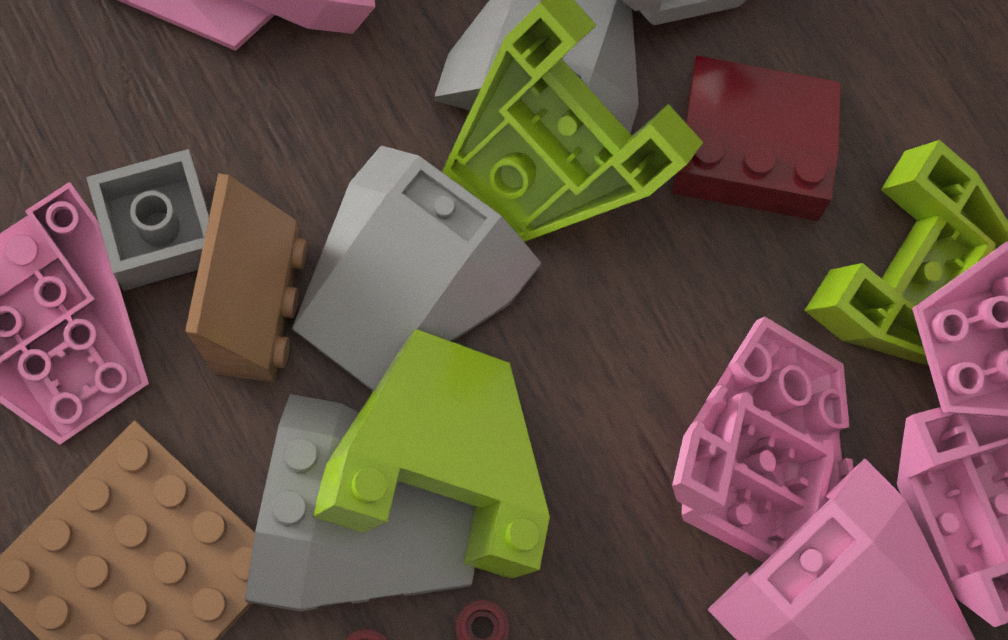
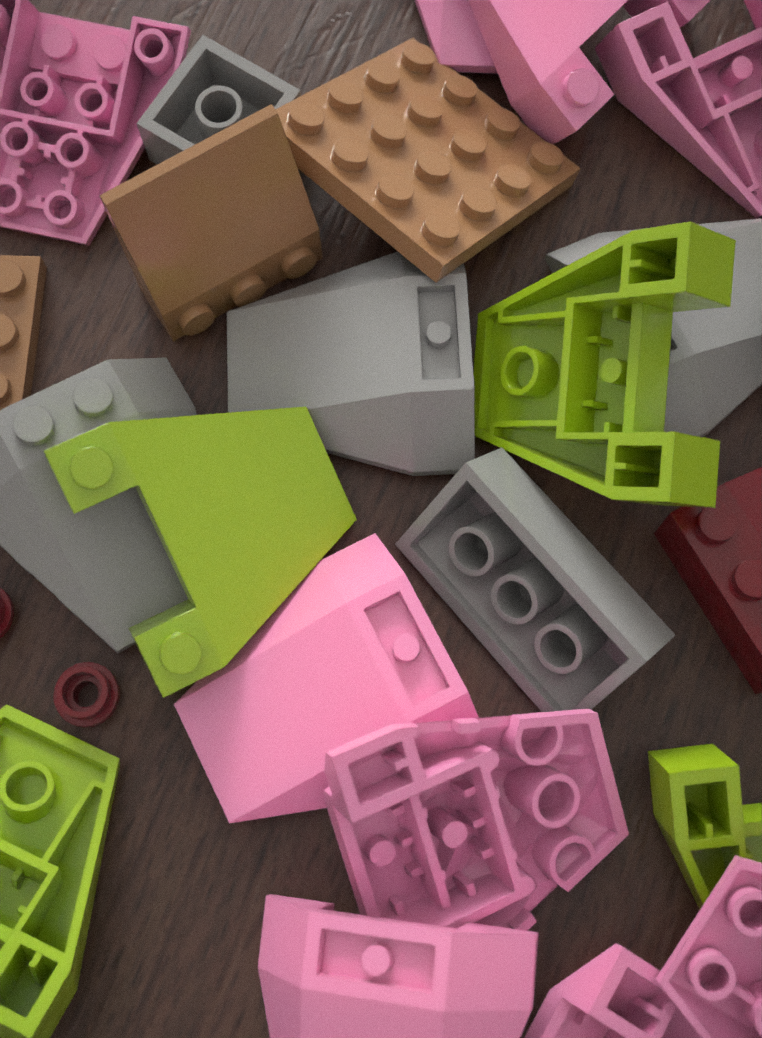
camera: 55 degrees right, 0 degrees up
(301, 112) = (423, 156): none -> medium nougat plate
(607, 467) = (320, 672): none -> bright pink wedge
(649, 292) = (532, 586): none -> light grey slope

